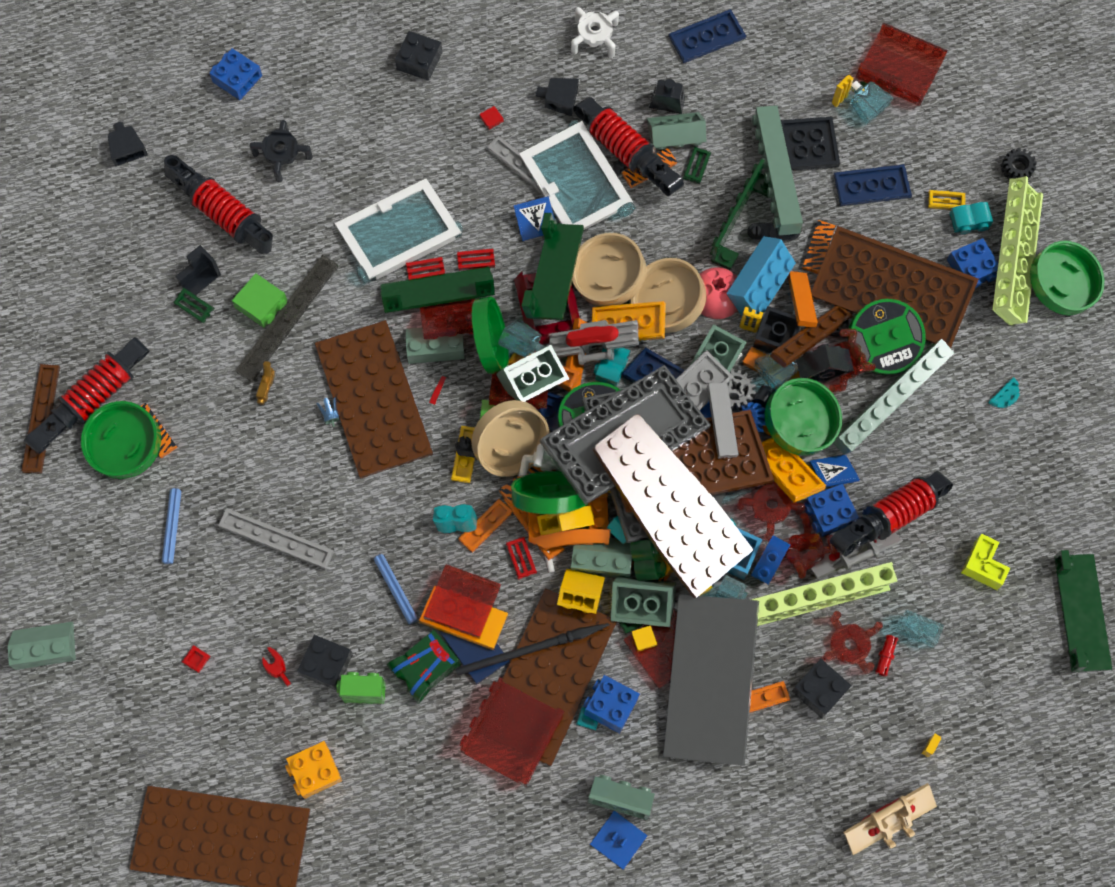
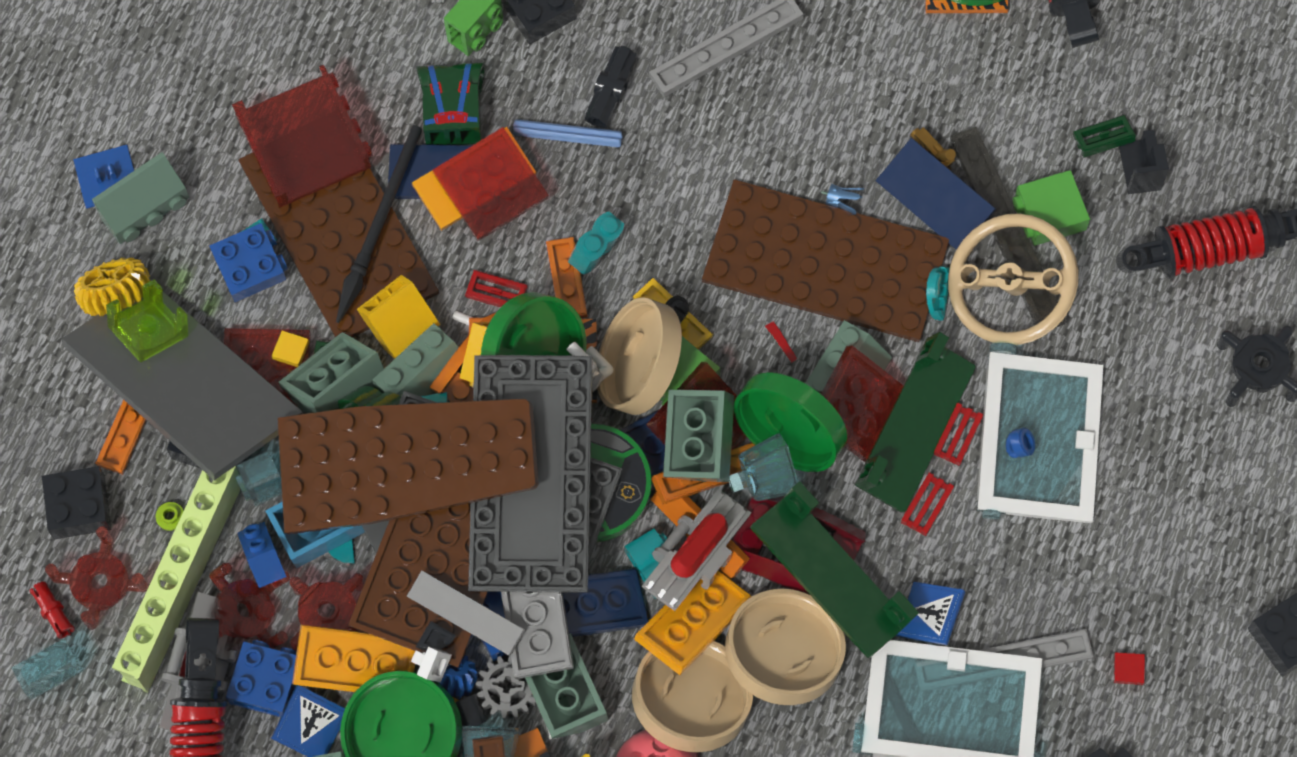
camera: 130 degrees right, 0 degrees up
(293, 364) = (934, 193): none -> dark blue tile
(317, 282) = (1027, 280): none -> tan piece
(349, 328) = (937, 292): none -> teal tile
(349, 583) = (610, 86): none -> black piece
(411, 229) = (1020, 443): none -> blue tile
(696, 723) = (148, 324): none -> clear neon green panel
(697, 763) = (111, 281): none -> yellow gear
(745, 428) = (435, 637): none -> black tile
(761, 420) = (431, 663): none -> white tile
(781, 638) = (169, 525): none -> lime plate

